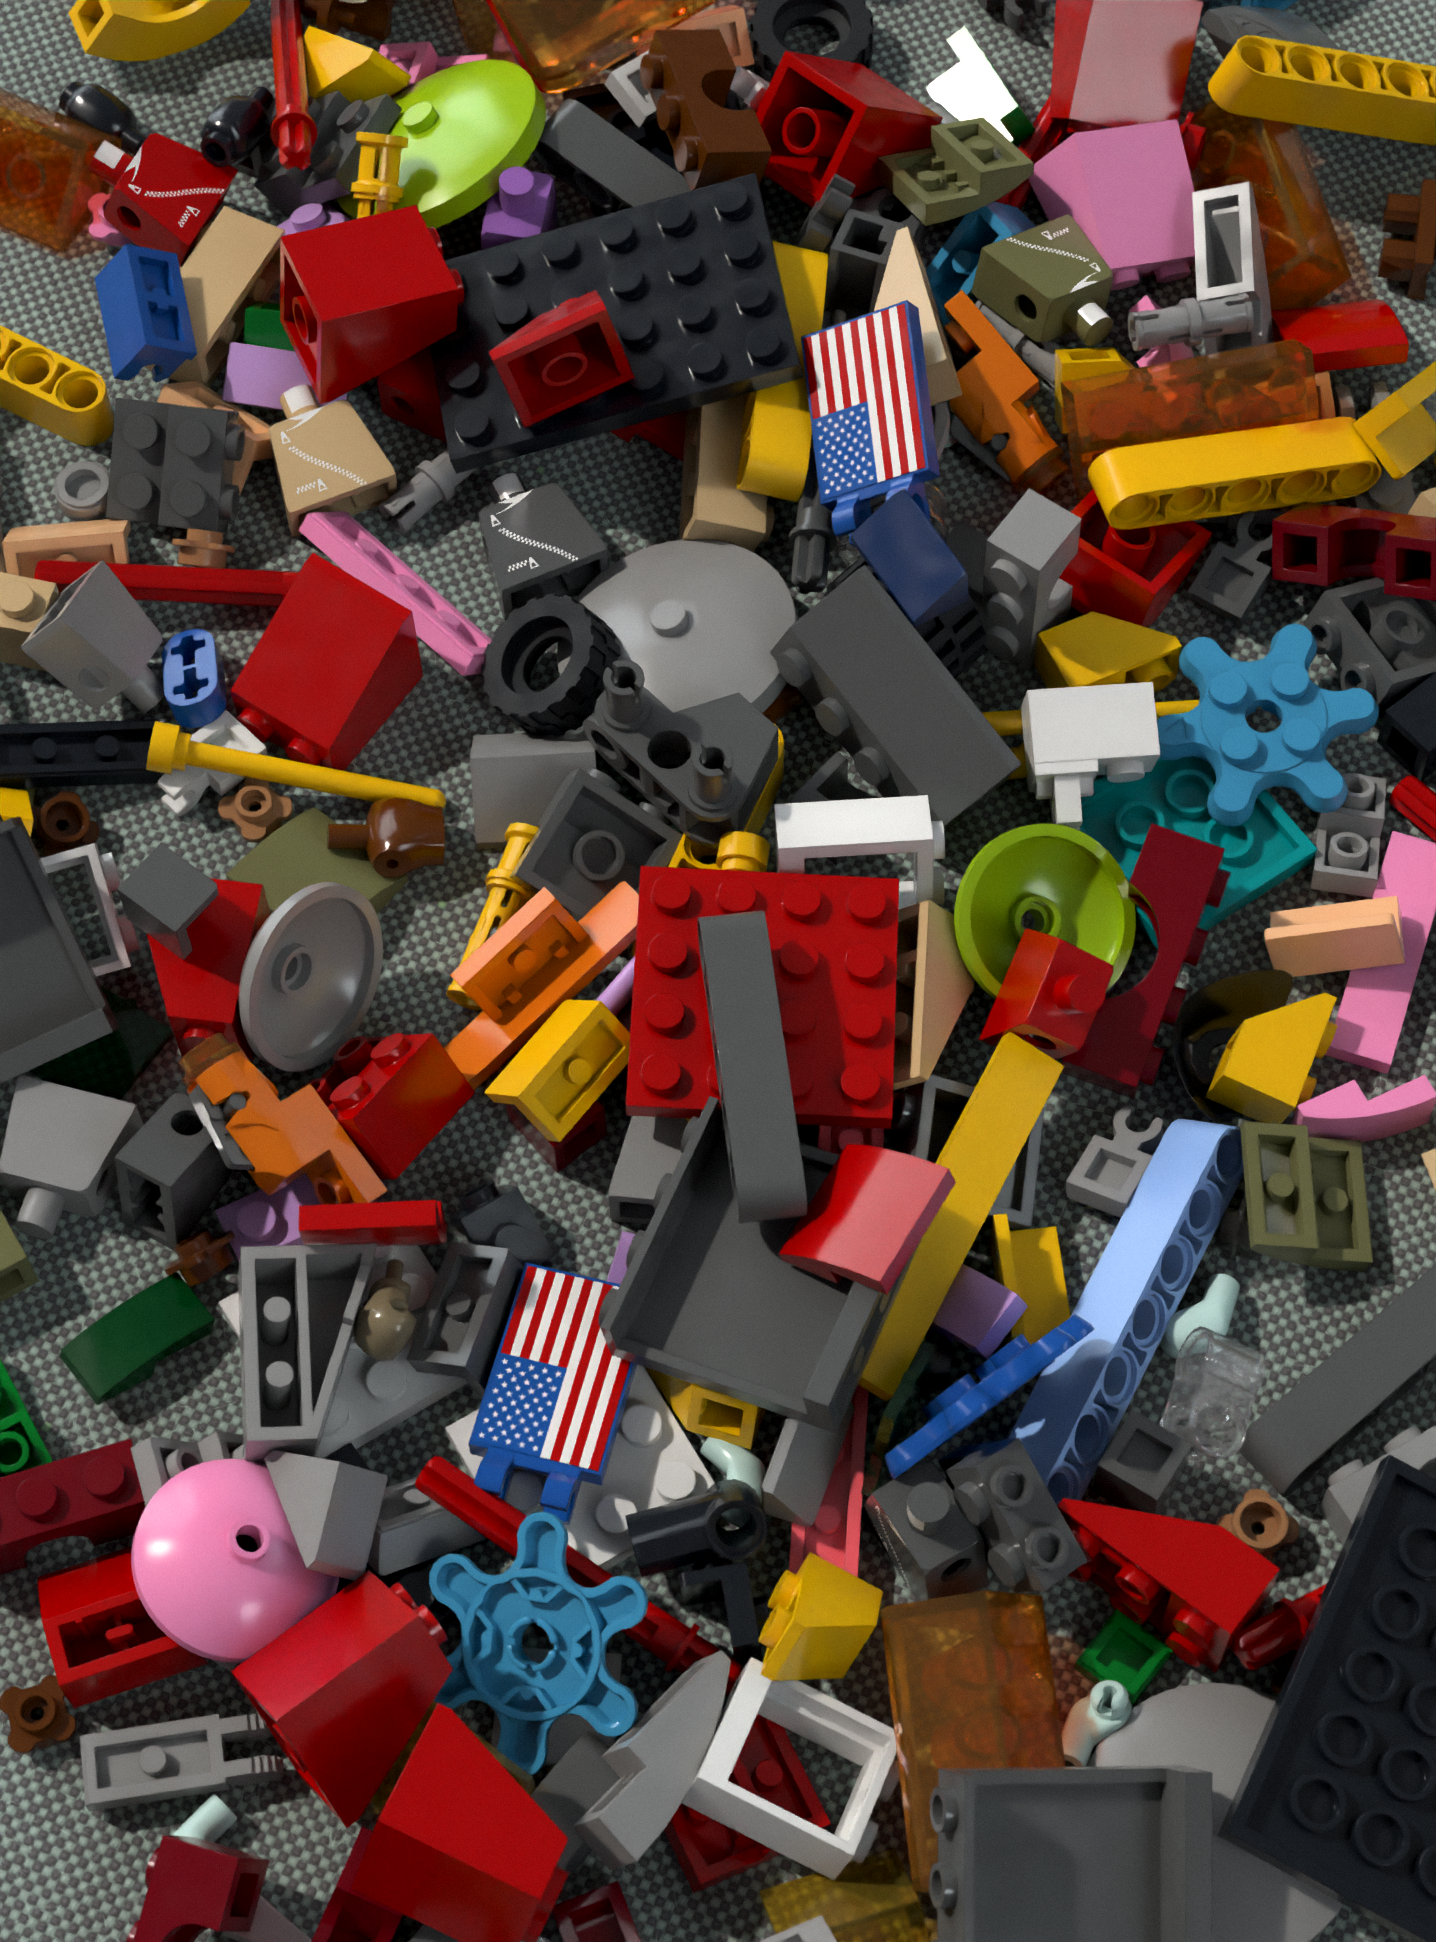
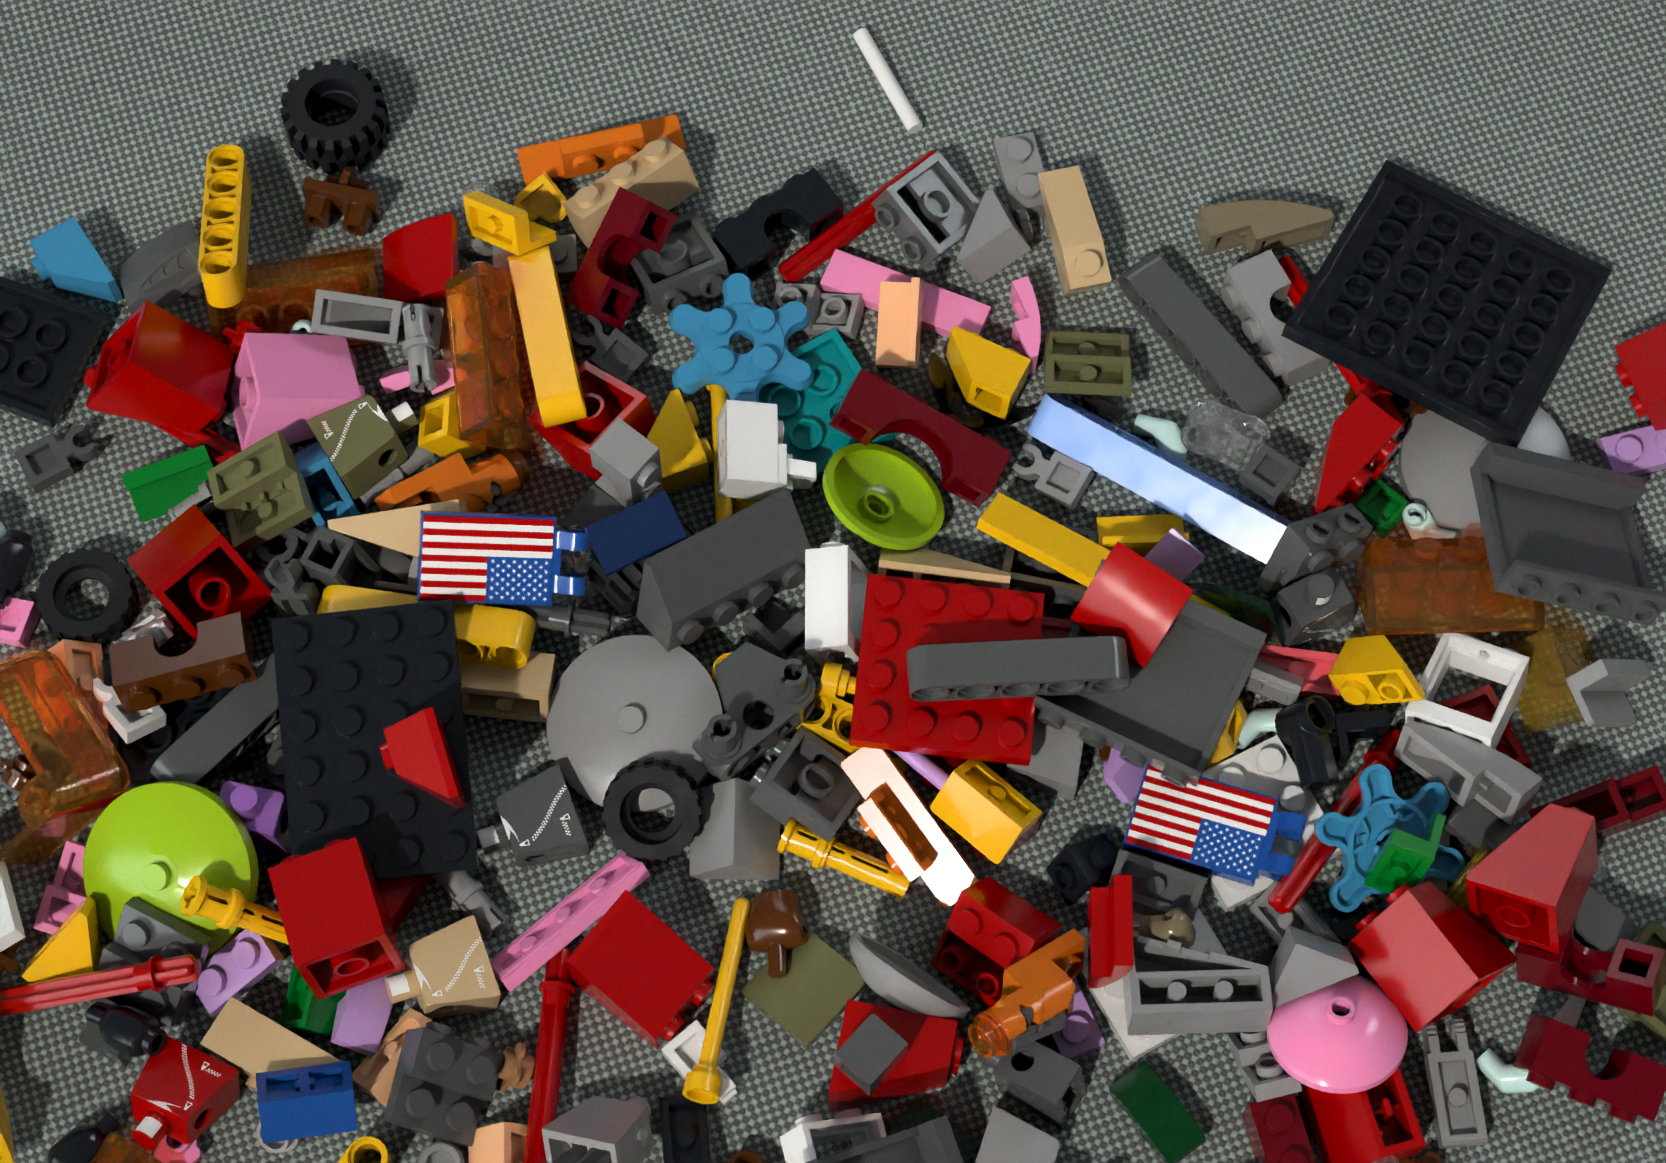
camera: 90 degrees left, 5 degrees up
(184, 679) = (629, 1063): blue beam -> none
(201, 1256) = (1101, 1067): reddish brown plate -> none
(261, 823) = (755, 1032): medium nougat plate -> none
(478, 1654) = (1404, 857): none -> green panel
(968, 1401) = (1232, 532): blue plate -> none
(1049, 994) = (949, 493): red torso -> none
(1263, 1510) = (1304, 411): medium nougat plate -> none

